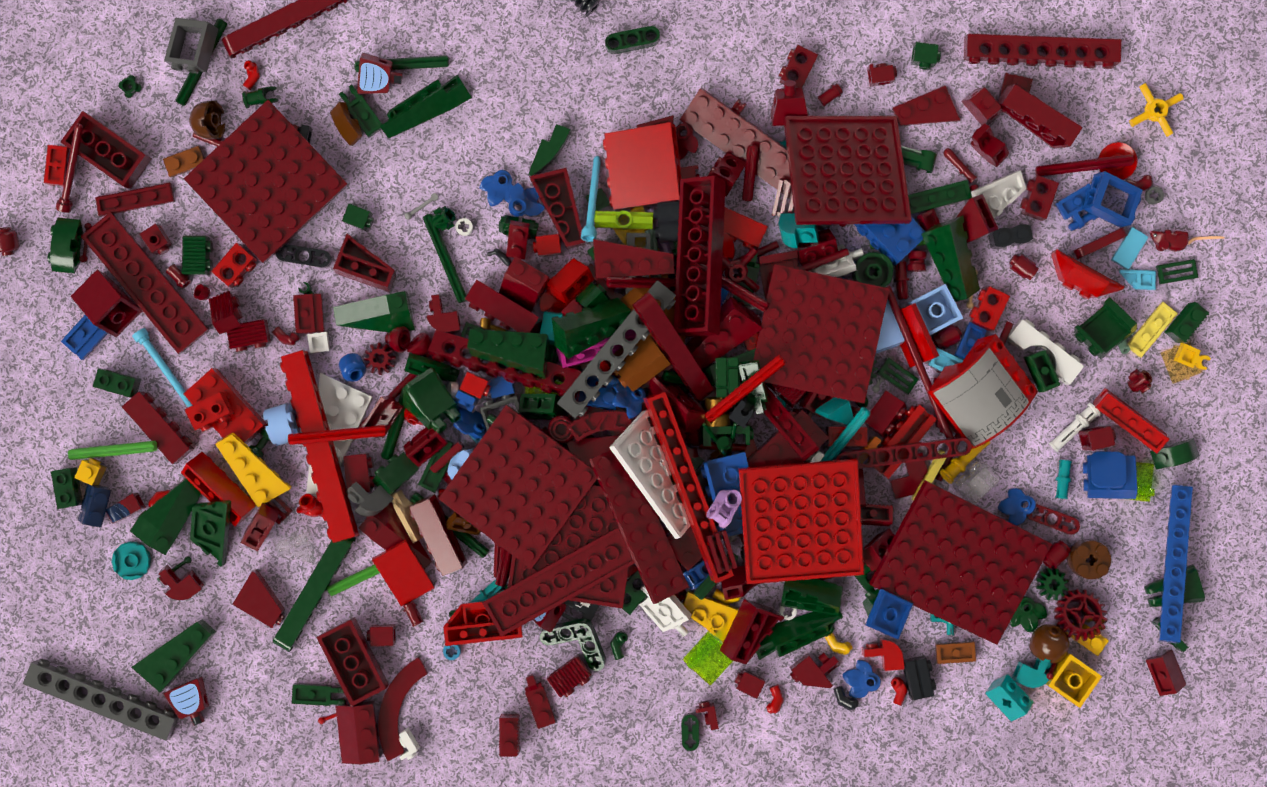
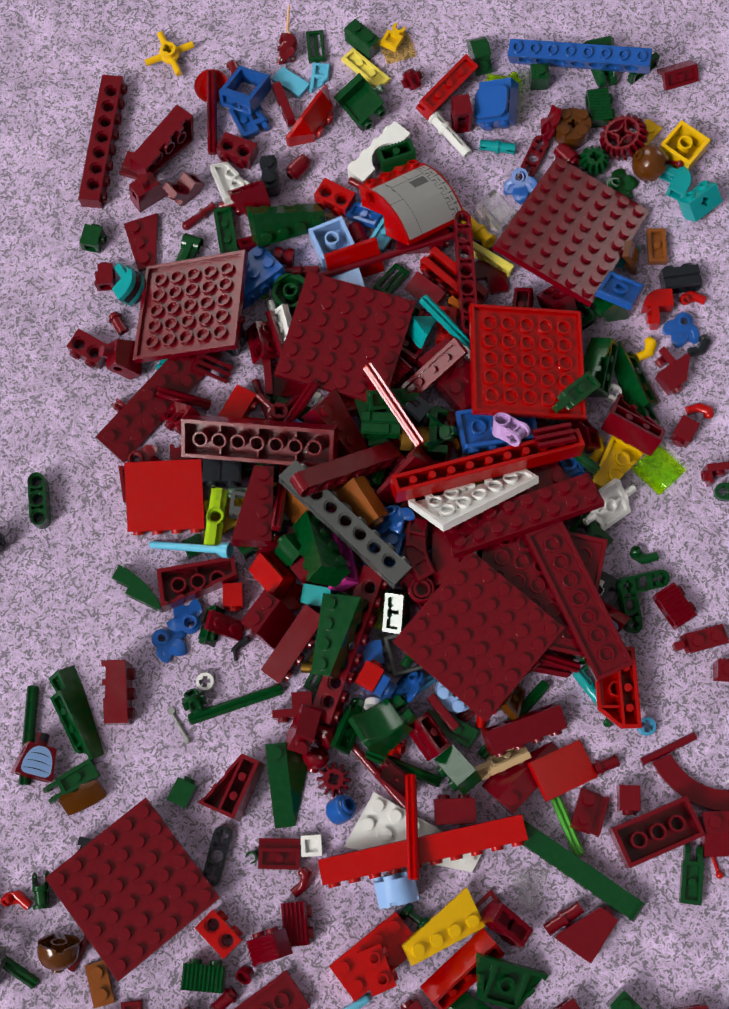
camera: 85 degrees left, 15 degrees down
(271, 578) = (563, 918): none -> dark red pin
(310, 506) = (487, 866): red animal -> none
(367, 599) = (589, 812): none -> dark red plate
(369, 504) = (486, 798): dark grey brick -> none
(420, 325) = (303, 729): none -> dark red slope
(433, 672) = (668, 748): none -> dark red bar
(445, 145) = (118, 692): none -> dark red wedge
(770, 573) = (576, 392): none -> dark green hinge
(795, 234) = (246, 360): teal brick -> none
(872, 103) = (129, 286): none -> teal brick
(937, 625) = (631, 256): none -> reddish brown slope
(1093, 535) = (549, 124): none -> dark red plate
(1118, 587) = (599, 106): none -> dark green brick
(1151, 200) = (242, 56): dark grey bush -> none
(1151, 520) = (539, 76): none -> dark green brick

